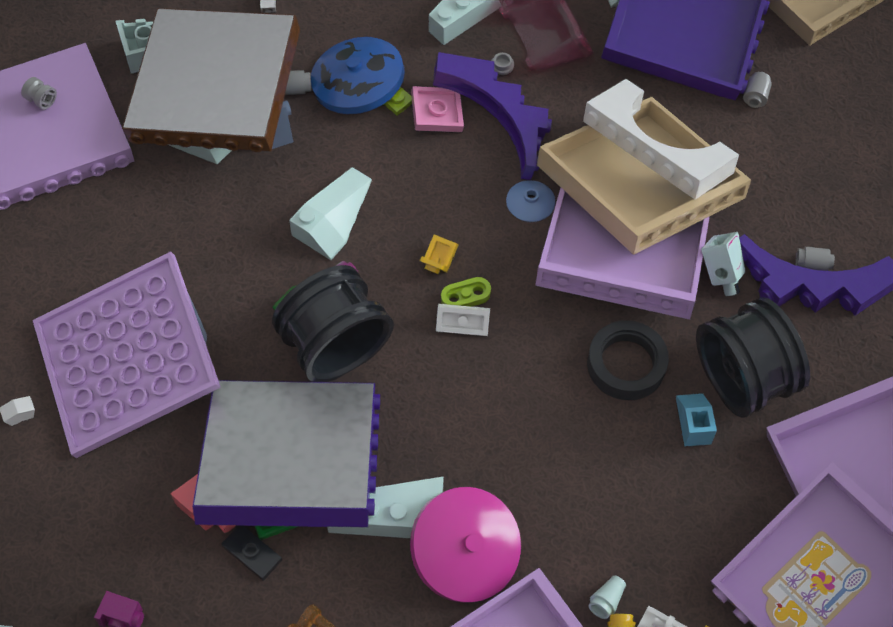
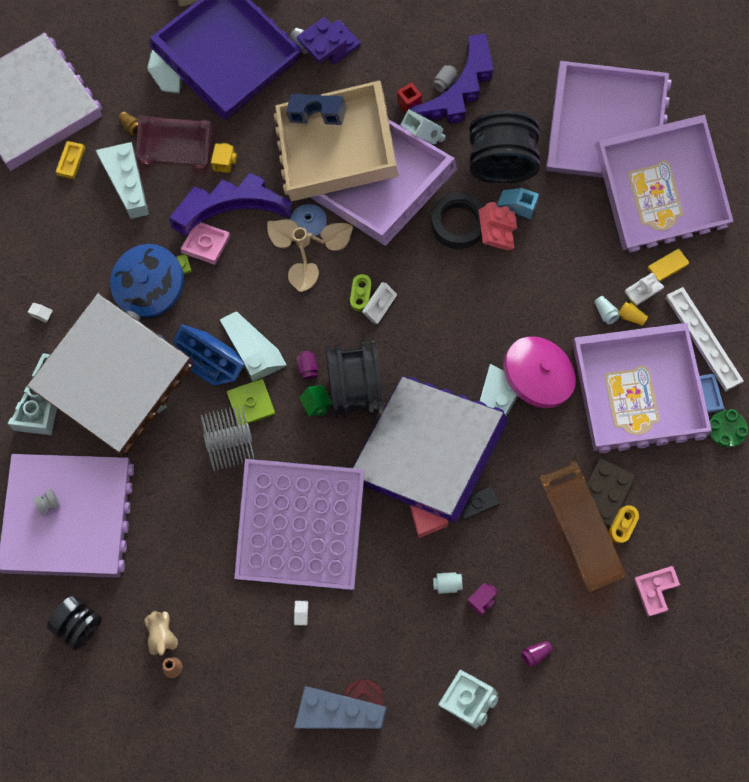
camera: 60 degrees left, 10 degrees up
(124, 561) = (447, 582): none -> light aqua brick
(196, 229) = (226, 438): none -> light grey piece
(263, 243) = (254, 401): none -> lime plate
(297, 168) = (210, 357): none -> blue wedge
(439, 254) = (323, 295): yellow bracket -> none
(493, 184) = (285, 231): none -> tan plant
(503, 63) = (188, 183): light grey plate -> none
(554, 79) = (223, 158): none -> yellow brick
(643, 405) = (497, 226): none -> coral plate
(662, 117) = (303, 106): none -> dark blue arch
(688, 169) = (357, 112): white arch -> none
(758, 227) = (408, 97): none -> red brick
(771, 108) = (328, 40): none -> dark purple bracket

